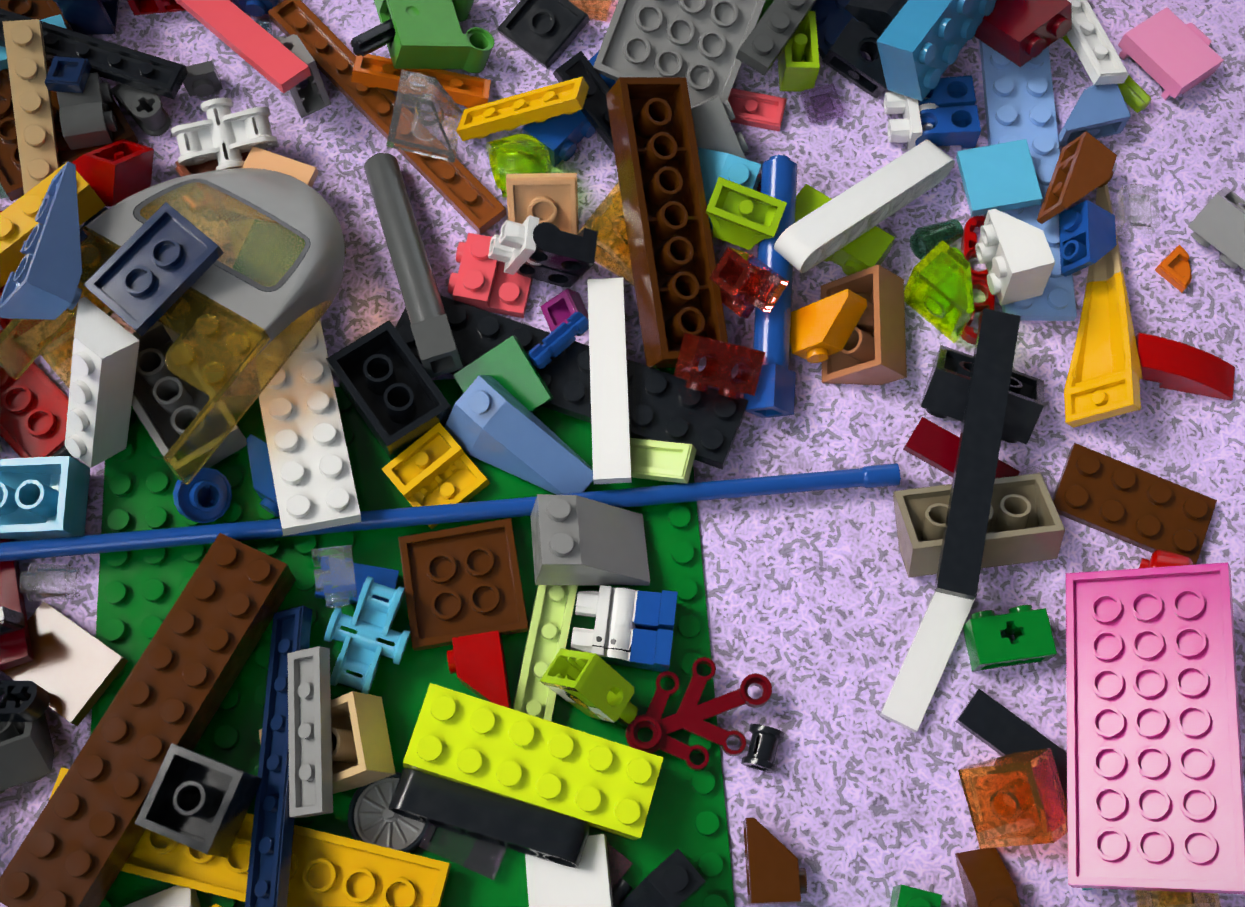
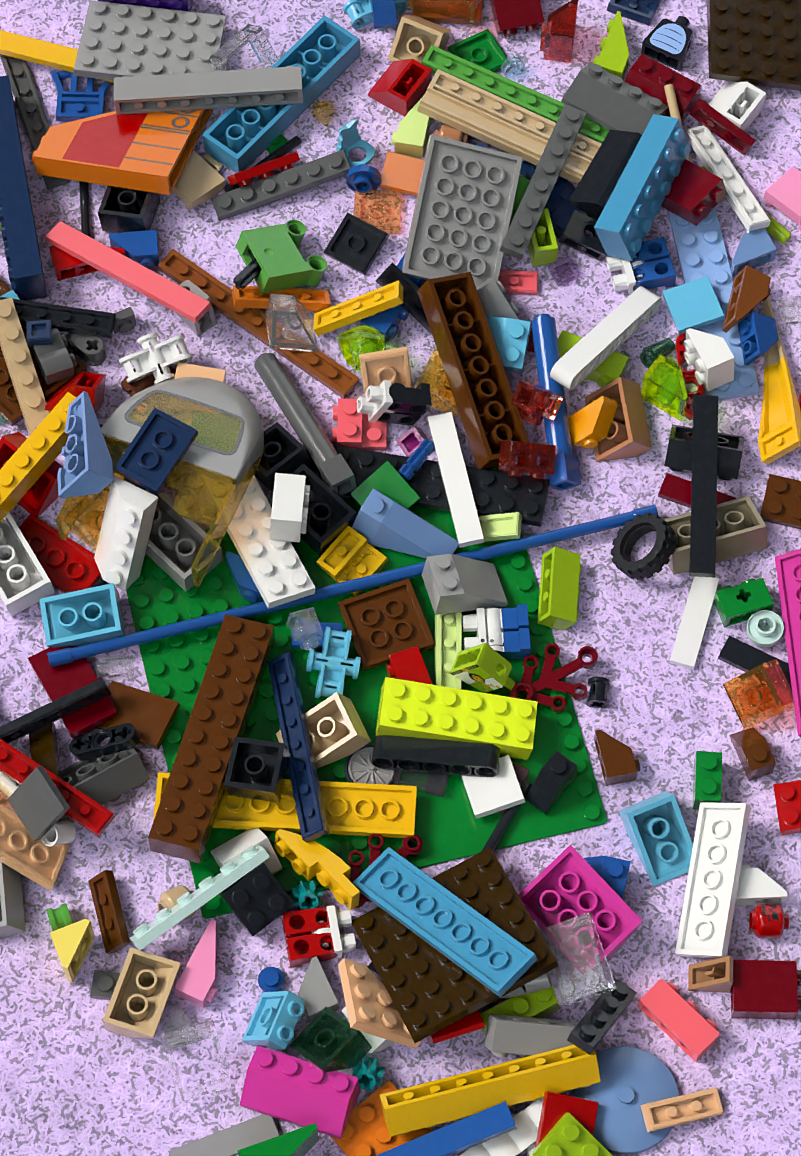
camera: 10 degrees left, 5 degrees down
(204, 497) = (204, 598): blue plate -> none
(309, 733) = (315, 720): light grey plate -> none
(341, 385) = (289, 507): none -> white brick
(362, 303) = (280, 455): none -> black brick
(732, 572) = (559, 588): none -> lime brick
(743, 214) = (525, 357): lime slope -> none
(892, 549) = (658, 555): none -> black tyre
(1036, 689) = (765, 628): none -> light aqua plate

